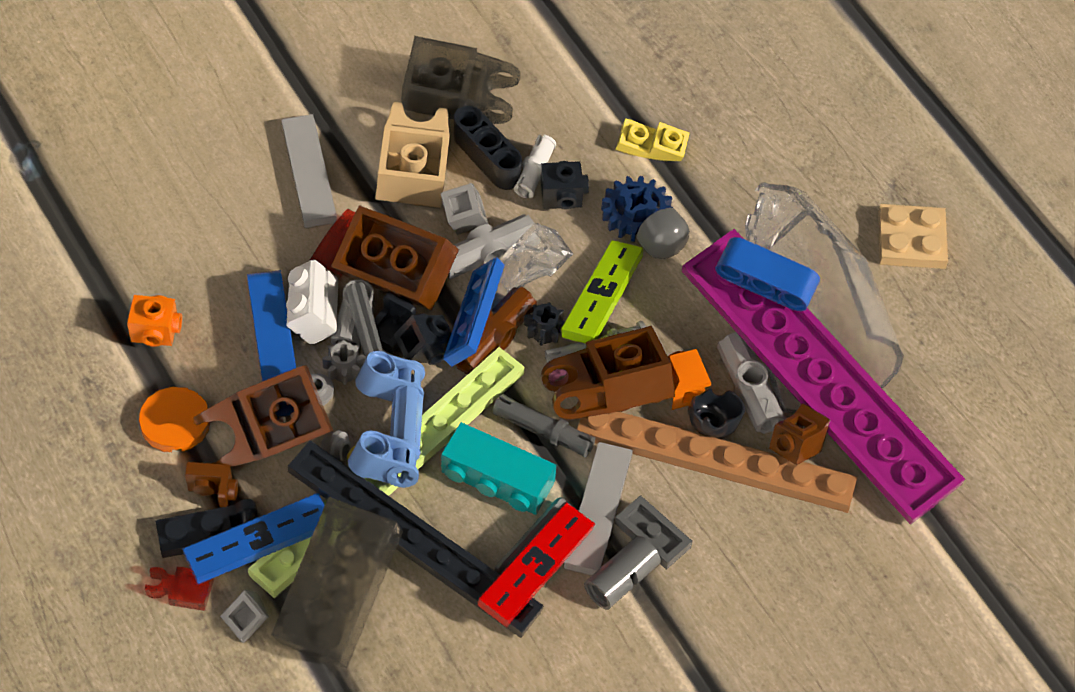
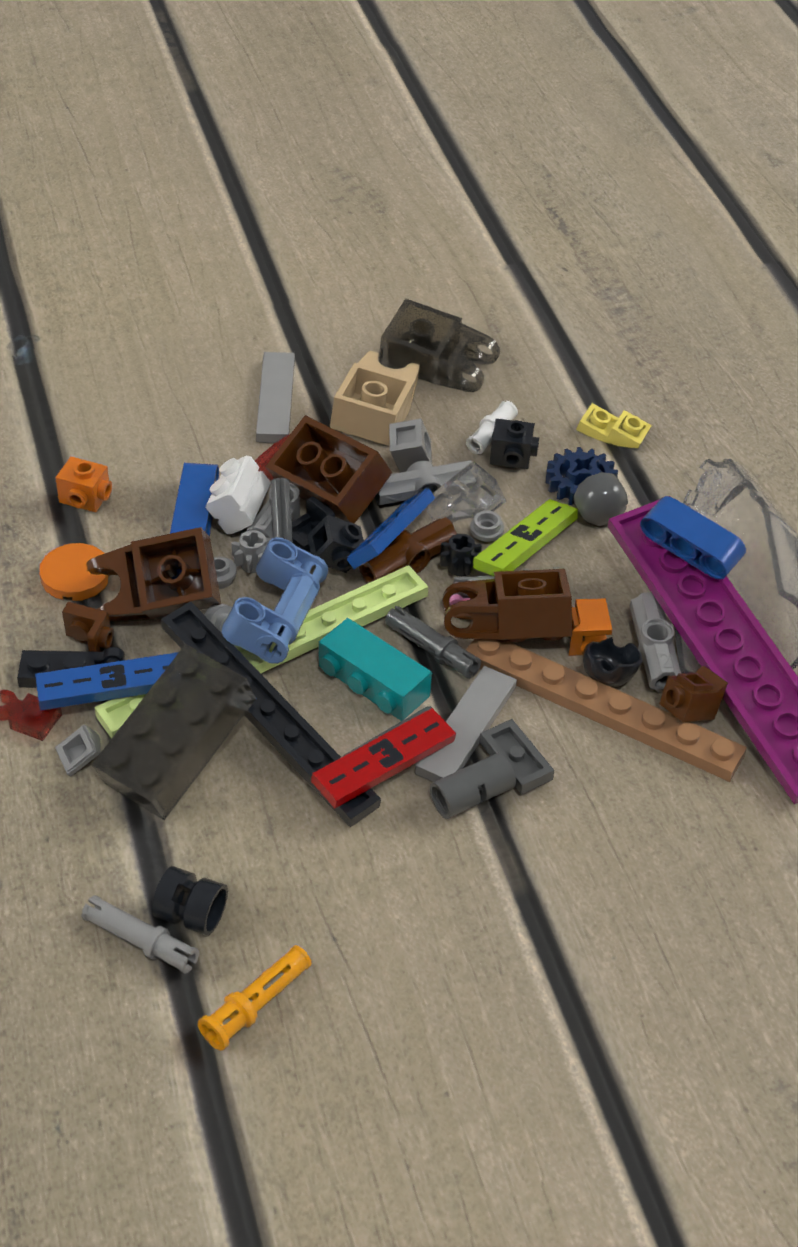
camera: 15 degrees right, 10 degrees down
(487, 147) = (449, 403): black beam -> none
(563, 277) = (487, 526): none -> light grey plate

